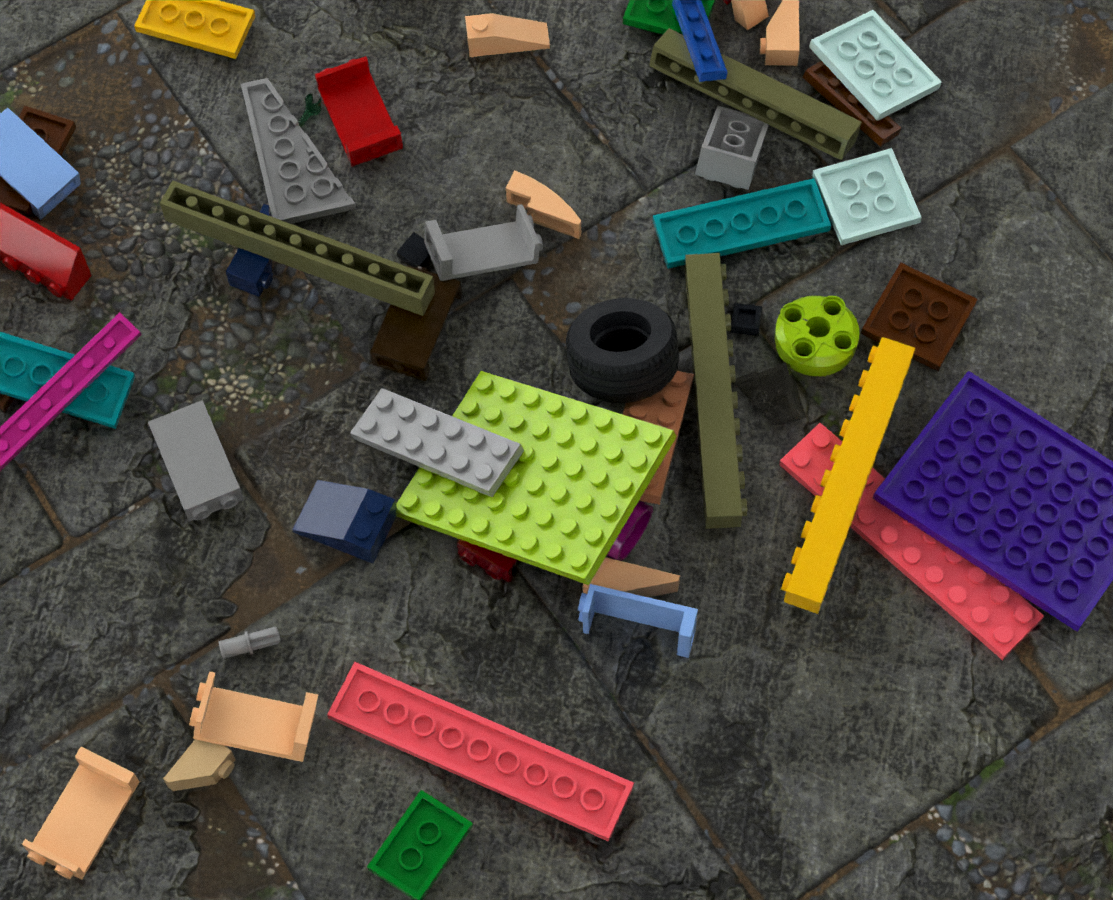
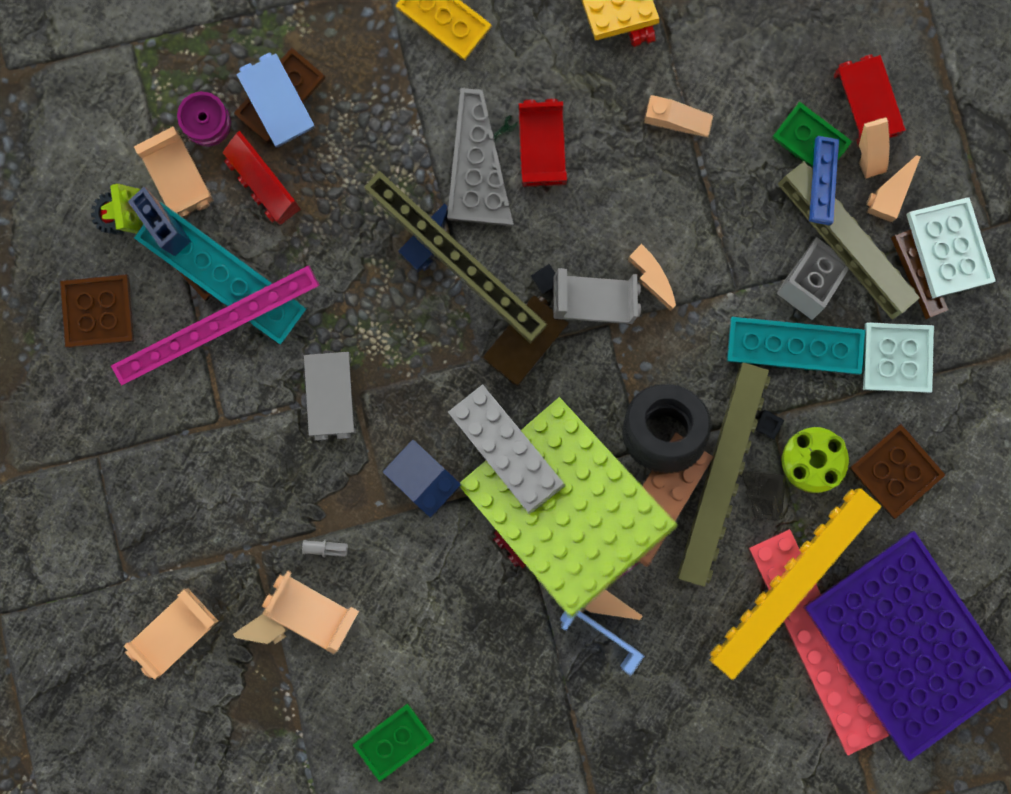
camera: 20 degrees right, 20 degrees up
(481, 751) = (458, 689): coral plate -> none

